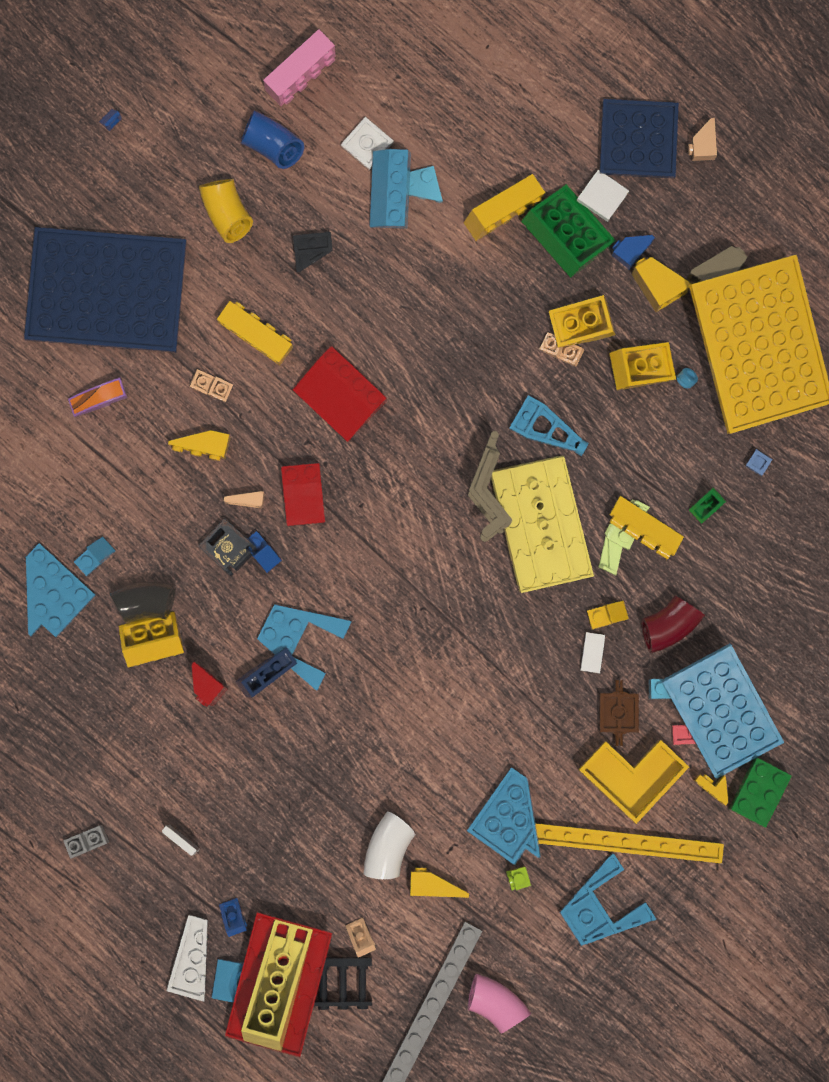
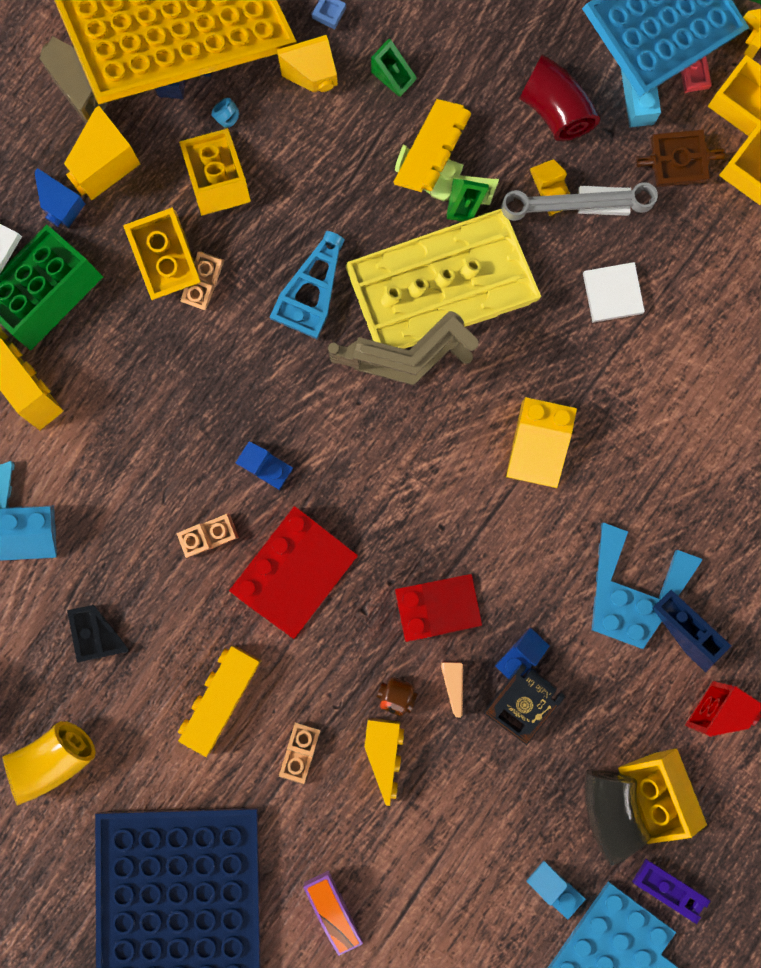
camera: 95 degrees left, 0 degrees up
(84, 637) = (670, 890): none -> dark purple plate
(243, 458) = (397, 696): none -> reddish brown head
(373, 335) = (207, 535): none -> light nougat slope
(414, 582) = (541, 442): none -> yellow slope
(419, 381) = (264, 465): none -> blue slope
(522, 651) = (613, 292): none -> white tile
(591, 631) = (579, 201): none -> light grey piece
(602, 547) = (465, 199): none -> green slope
(714, 445) = (309, 64): none -> yellow slope

